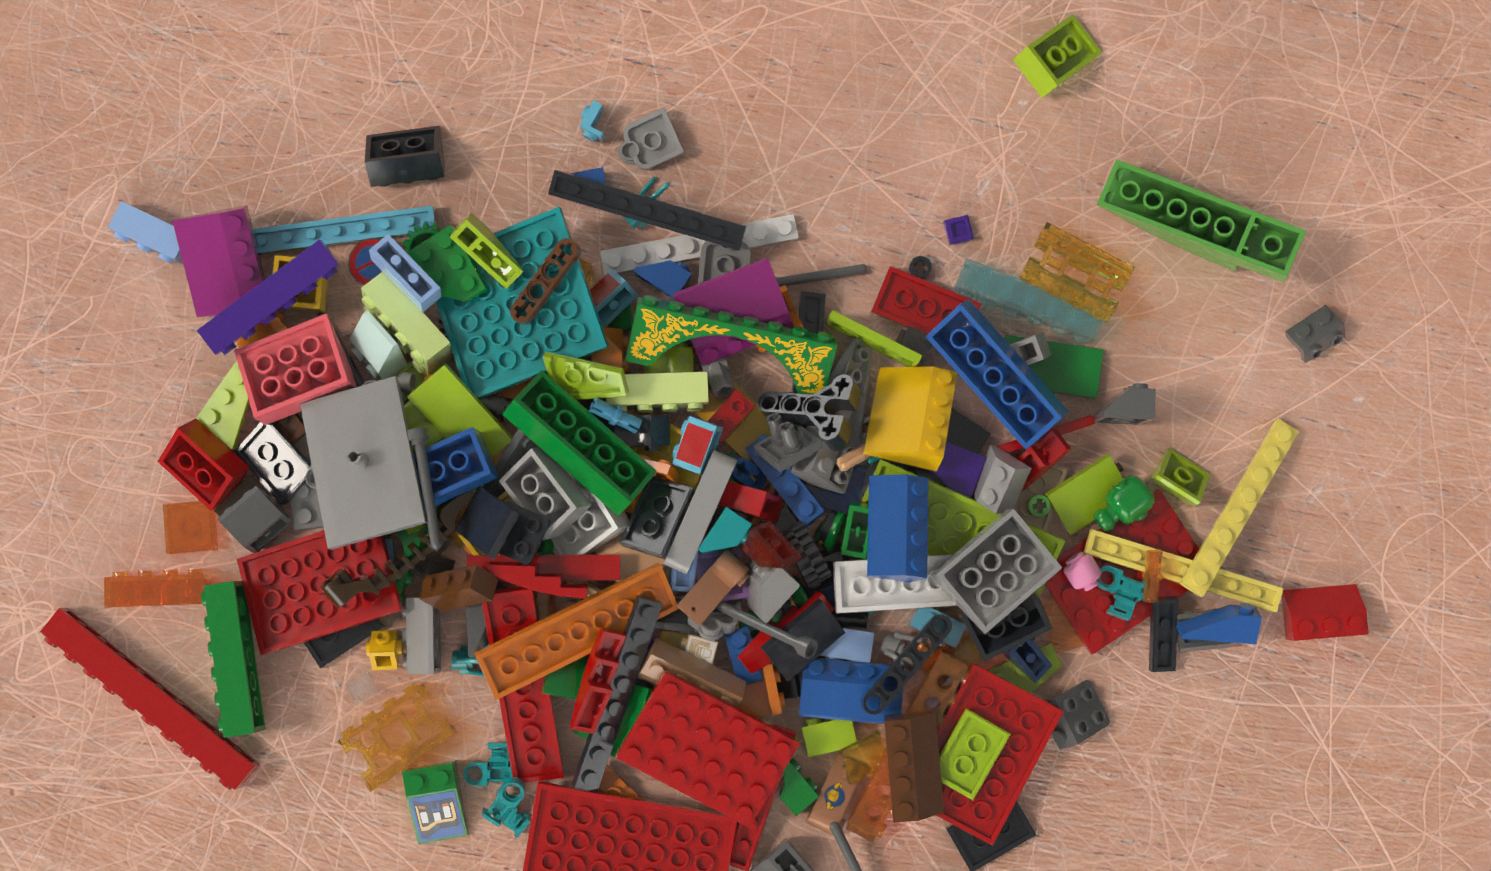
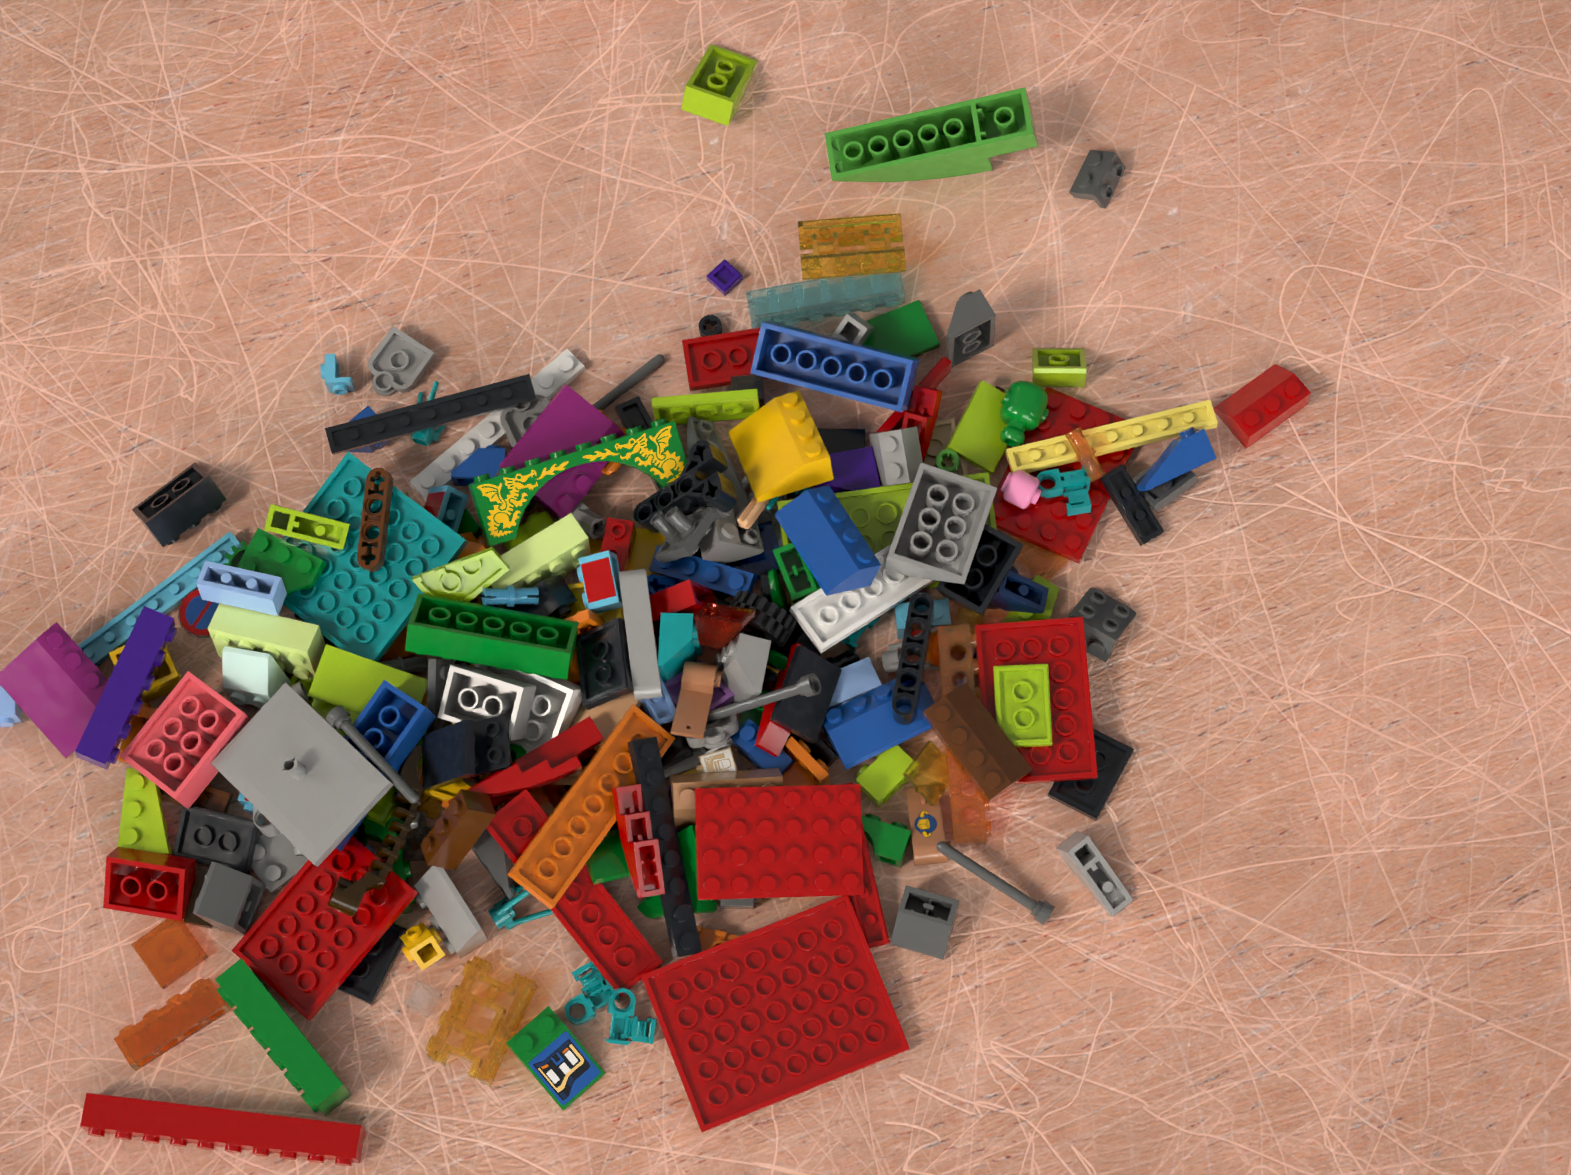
camera: 20 degrees left, 15 degrees down
(1239, 508) = (1126, 357): light yellow plate -> none

